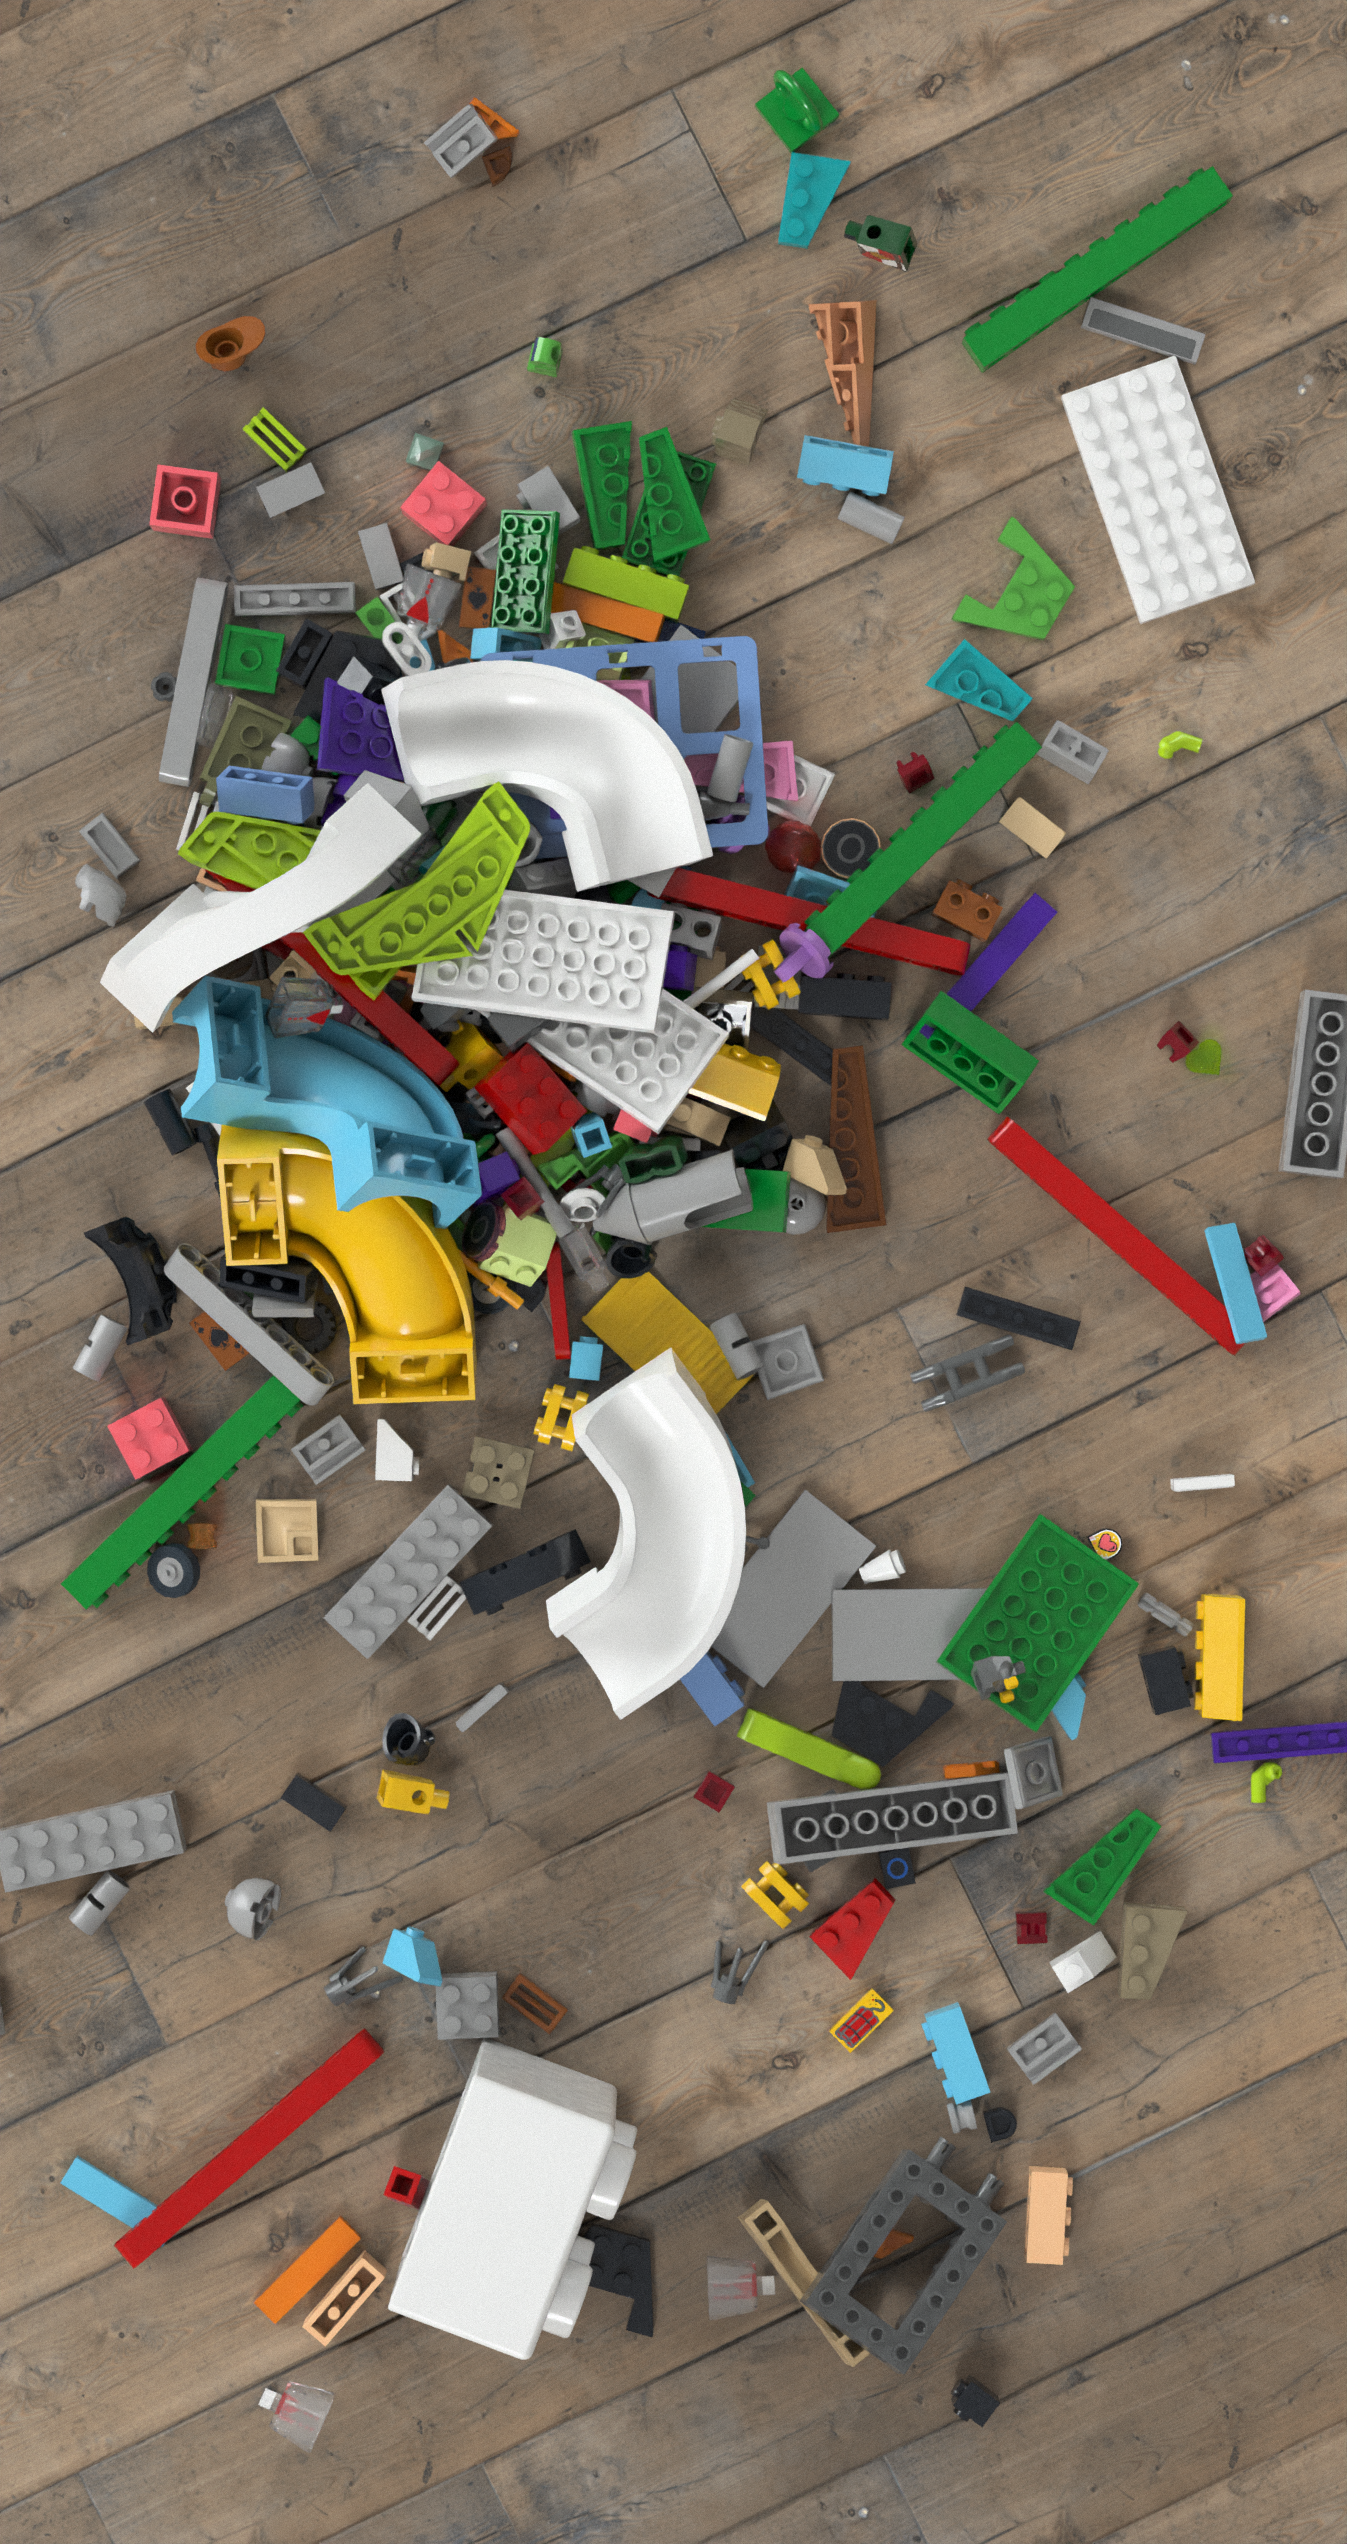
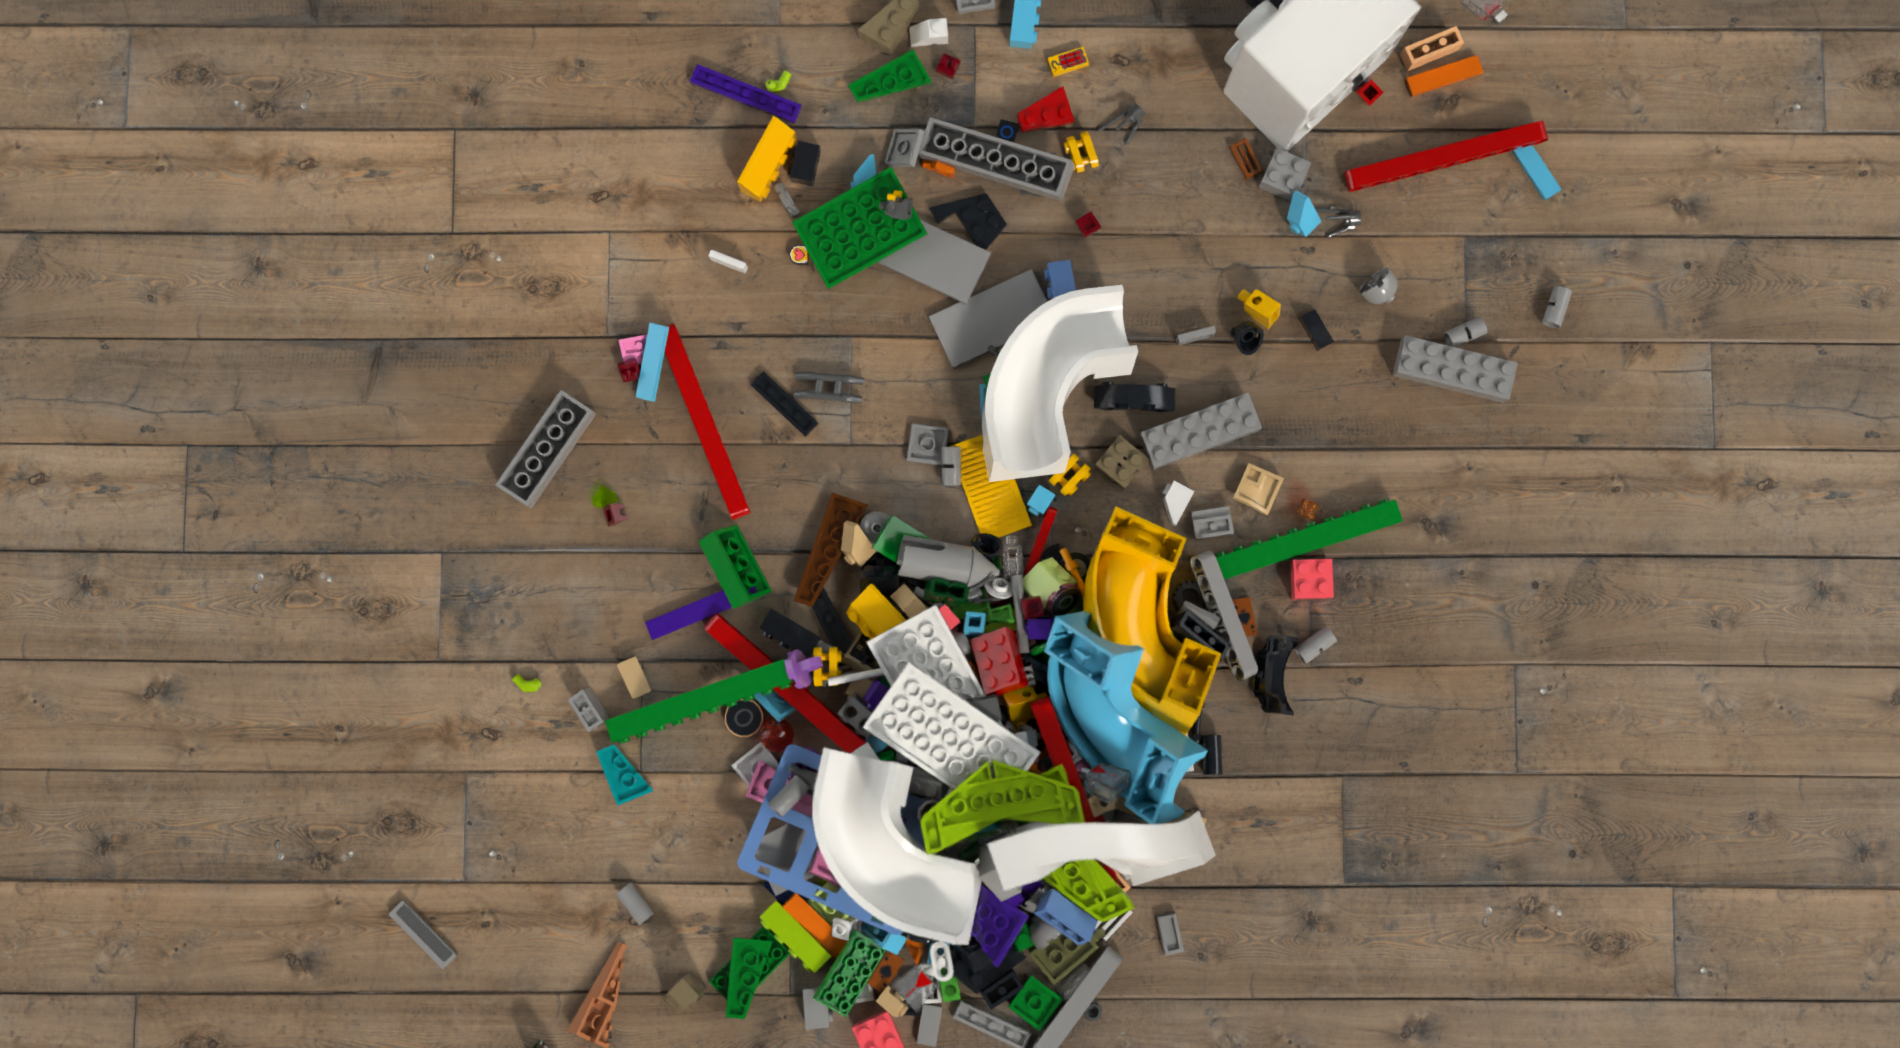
camera: 150 degrees left, 5 degrees down
(102, 892) = (1188, 908): light grey hair -> none
(173, 1570) = (1334, 497): black wheel -> none
(421, 1627) = (1207, 397): white tile -> none
(603, 471) = (775, 1010): green wing -> none
(809, 1750) = (1023, 222): lime piece -> none
(845, 465) = (634, 942): medium azure brick -> none
(884, 1567) = (930, 302): white cone -> none
(915, 773) = (684, 742): dark red tile -> none
(967, 910) = (695, 648): dark orange brick -> none
(1032, 595) = (565, 812): bright green wing -> none
(1096, 269) = (430, 984): green brick -> none
(1157, 489) = (462, 837): white plate -> none

